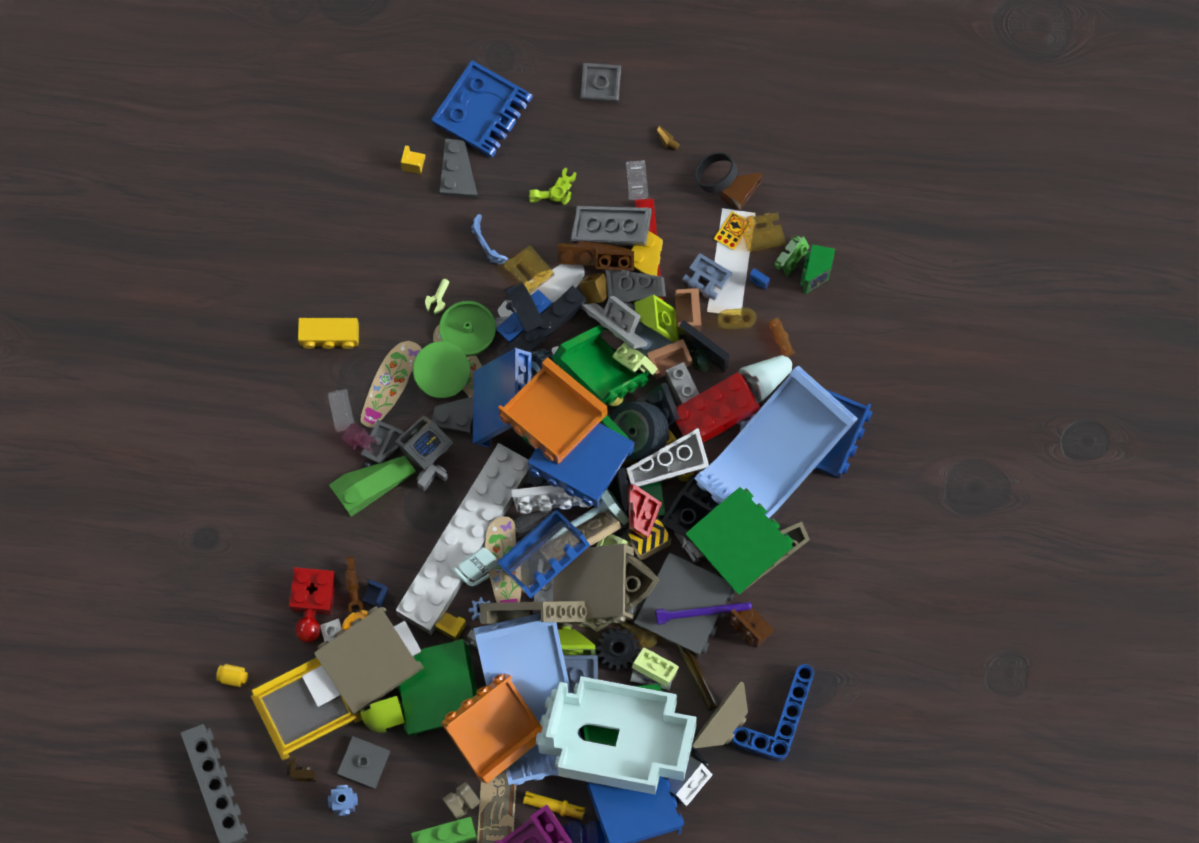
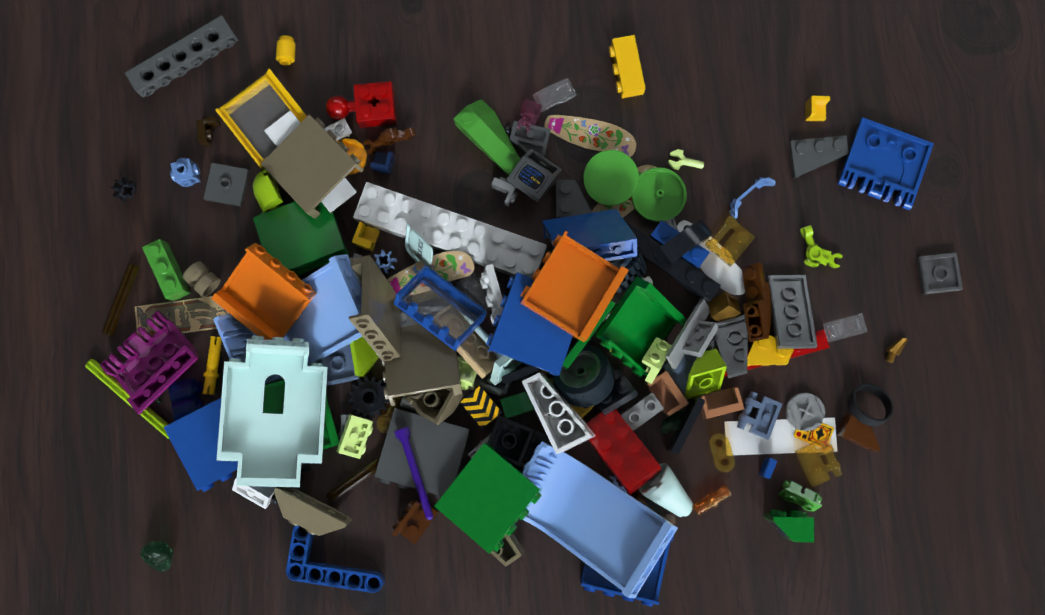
camera: 80 degrees right, 10 degrees up
(642, 510) = (501, 395): wing -> none
(711, 234) = (805, 411): none -> light grey tile

